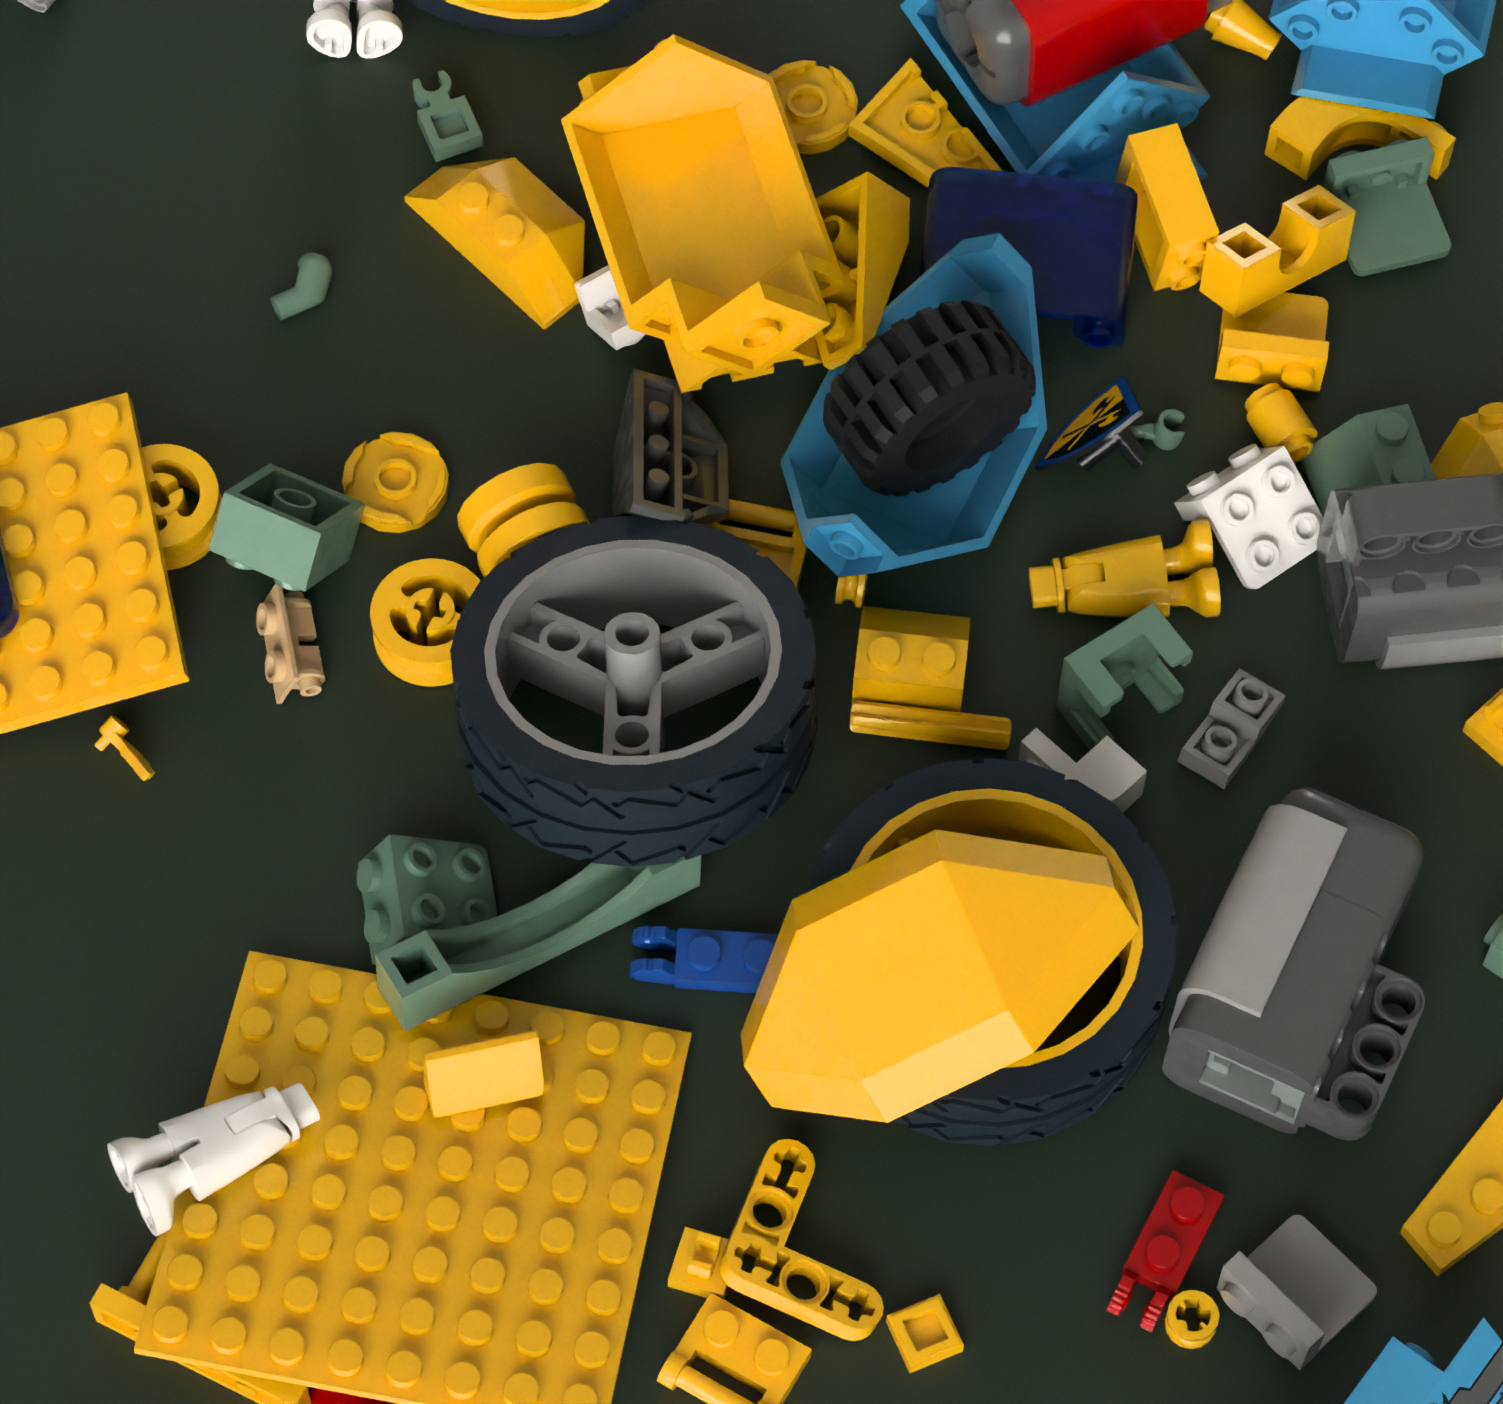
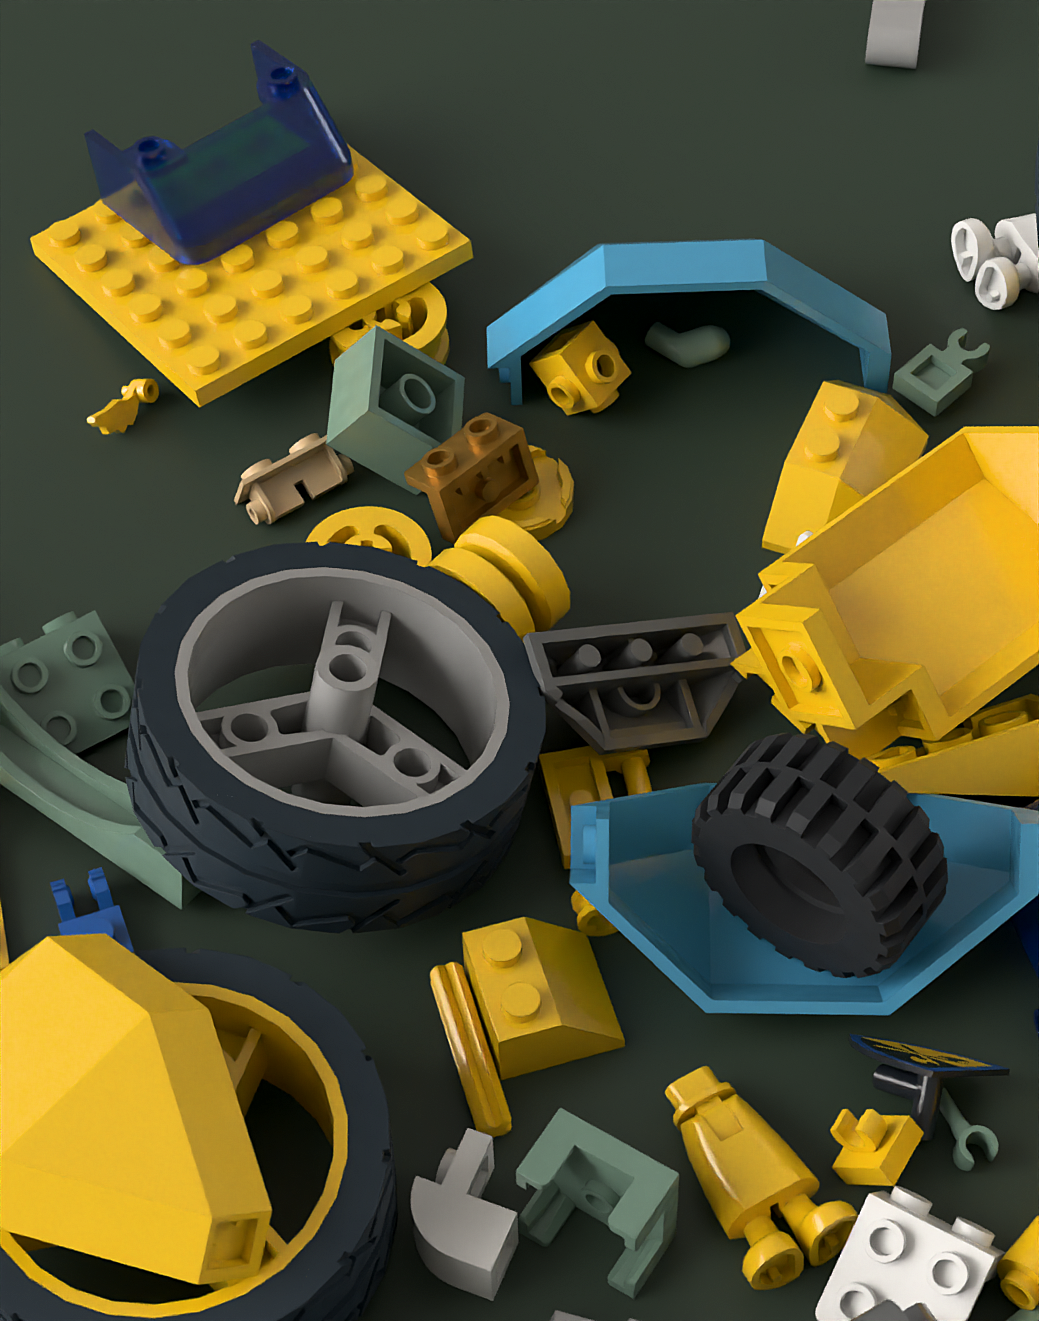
camera: 70 degrees right, 10 degrees down
(263, 265) = (688, 268): none -> dark azure panel
(304, 373) = (581, 369): none -> yellow brick
(387, 495) = (474, 473): none -> pearl gold bracket
(1147, 488) = (874, 1147): none -> yellow tile

